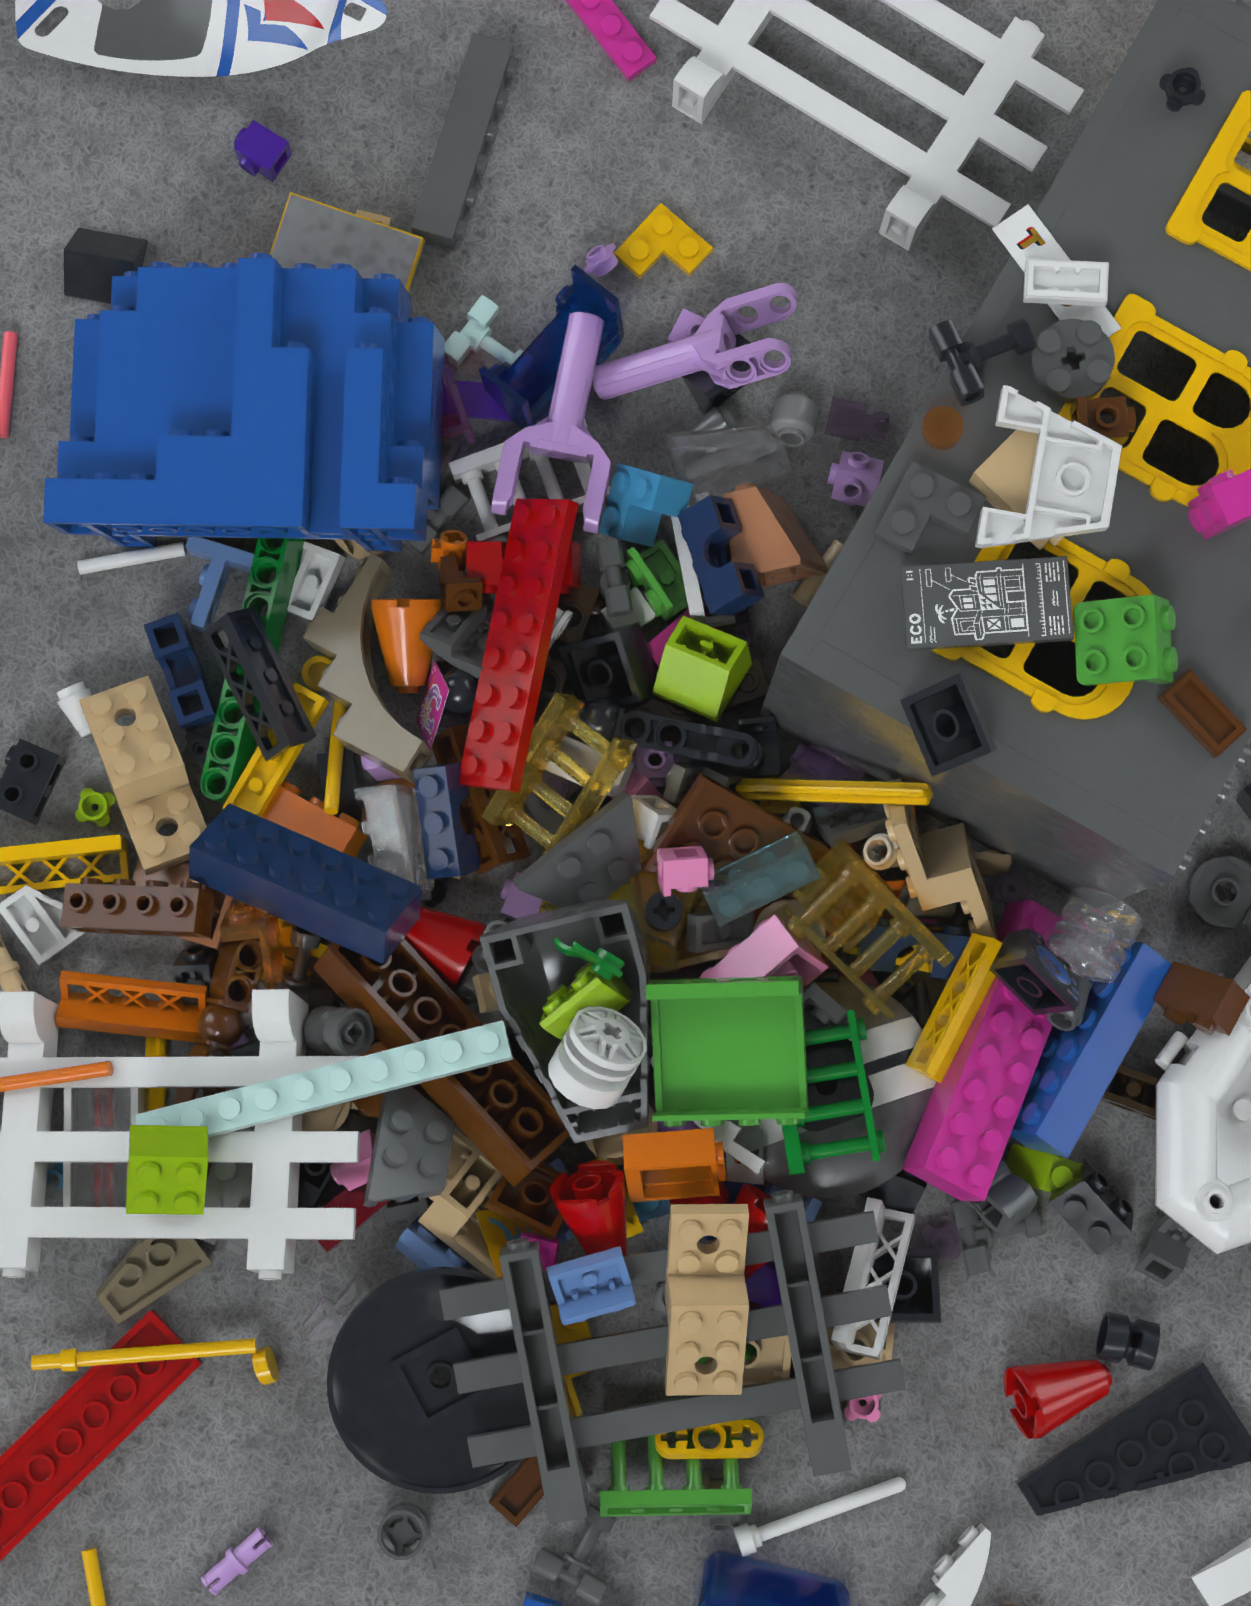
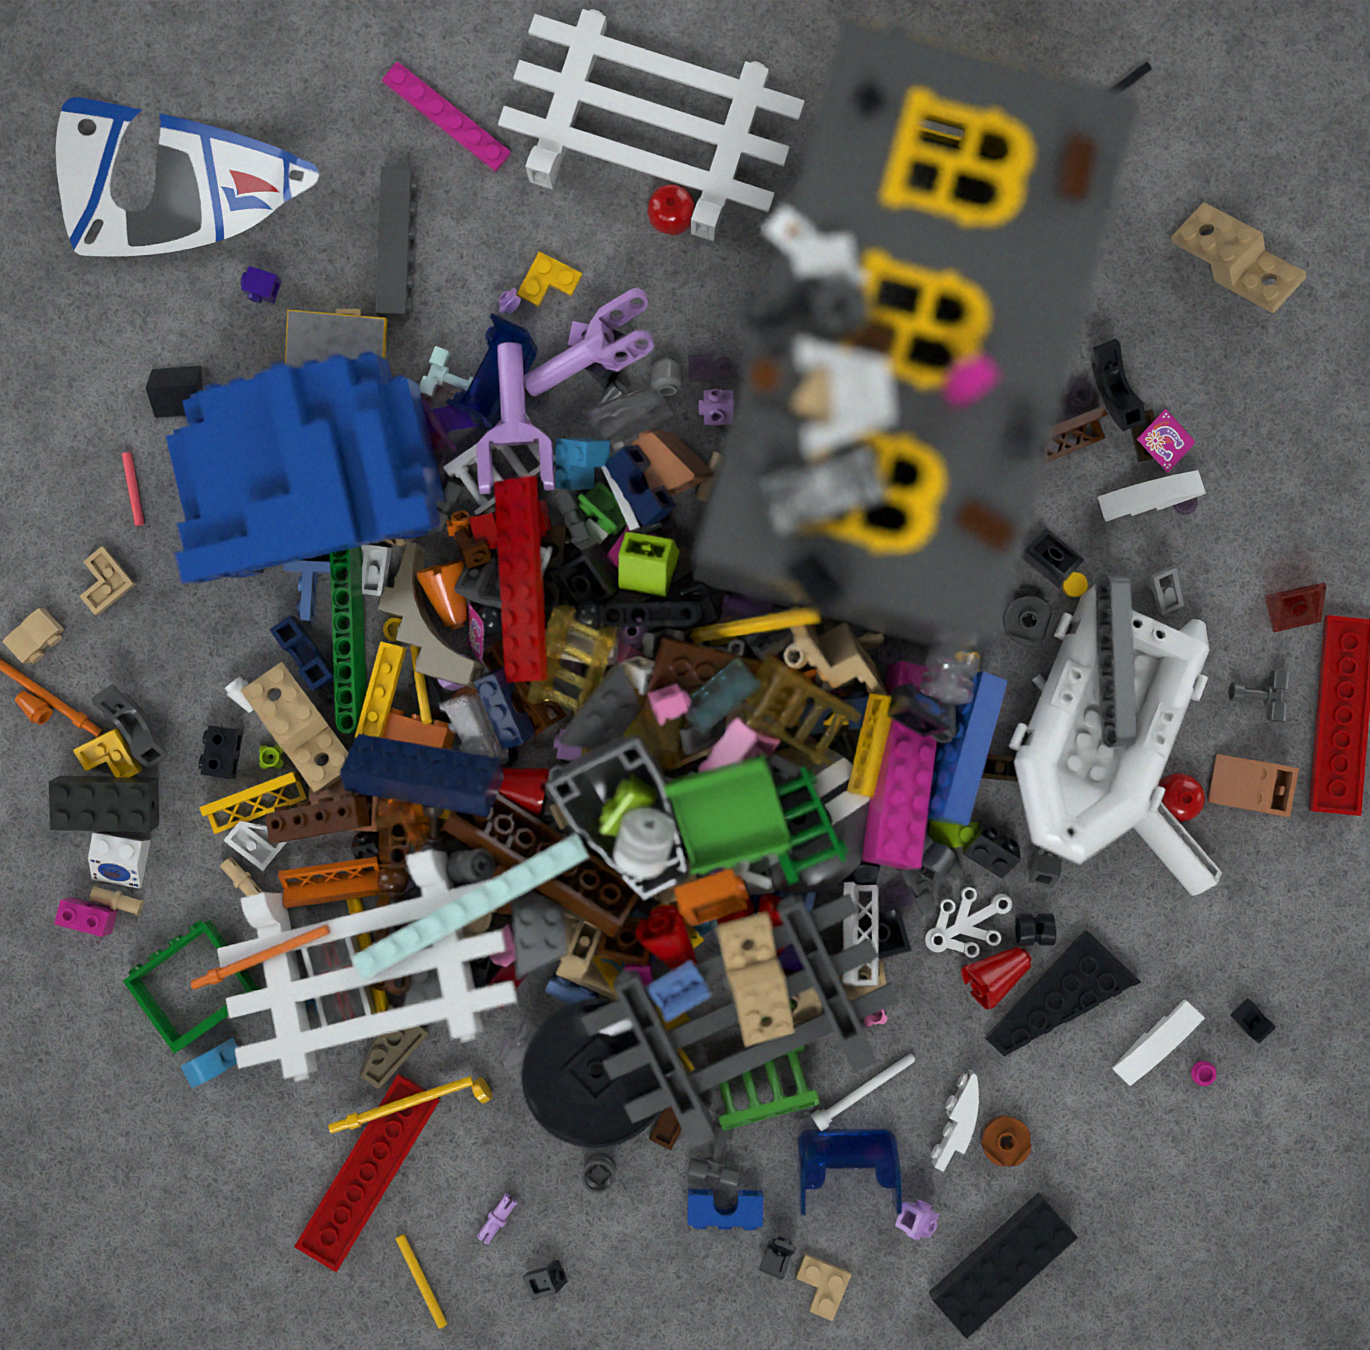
camera: 15 degrees left, 5 degrees up
(131, 558) = (249, 584): white bar -> none
(167, 1169) = (382, 988): lime piece -> none
(262, 678) = (358, 646): black fence -> none
(603, 962) = (632, 781): green plate -> none
(663, 919) = (663, 737): black wheel -> none
(719, 1452) = (789, 1070): yellow beam -> none
(859, 192) = (670, 209): none -> red cylinder
(1026, 1307) = (965, 923): none -> white plant
(1125, 640) = (922, 491): bright green bracket -> none
(1201, 999) = (1029, 698): reddish brown brick -> none

